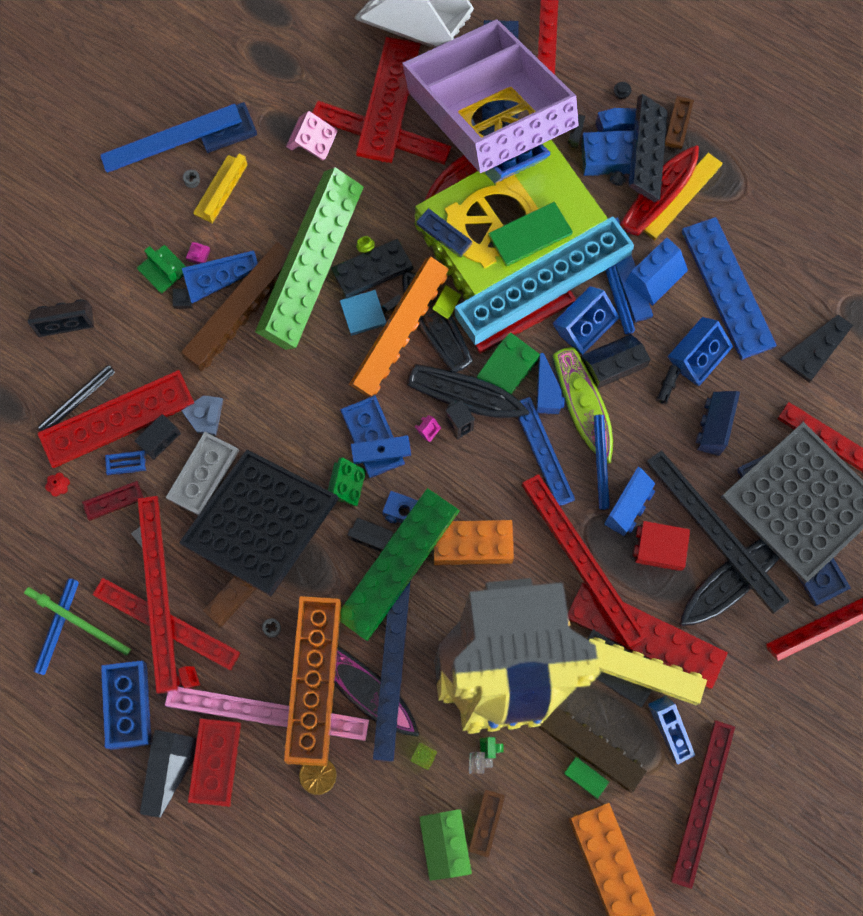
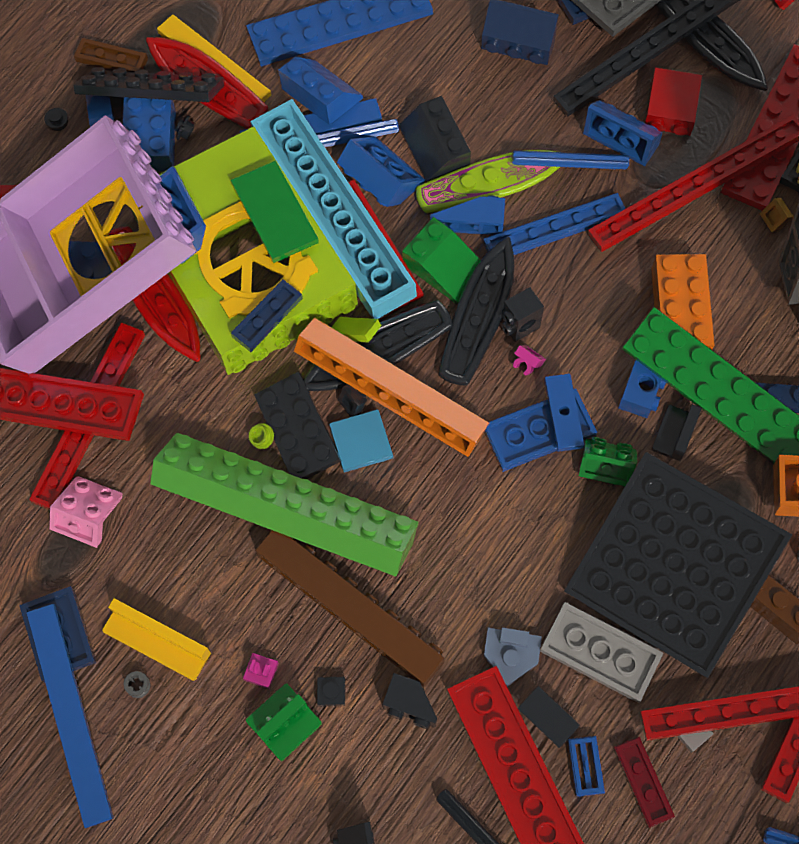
camera: 85 degrees left, 5 degrees down
(171, 345) = (408, 699): none -> black slope
(216, 274) = (300, 644): blue wing -> none
(668, 384) = (467, 86): black pin -> none
(701, 350) = (423, 50): blue slope -> none

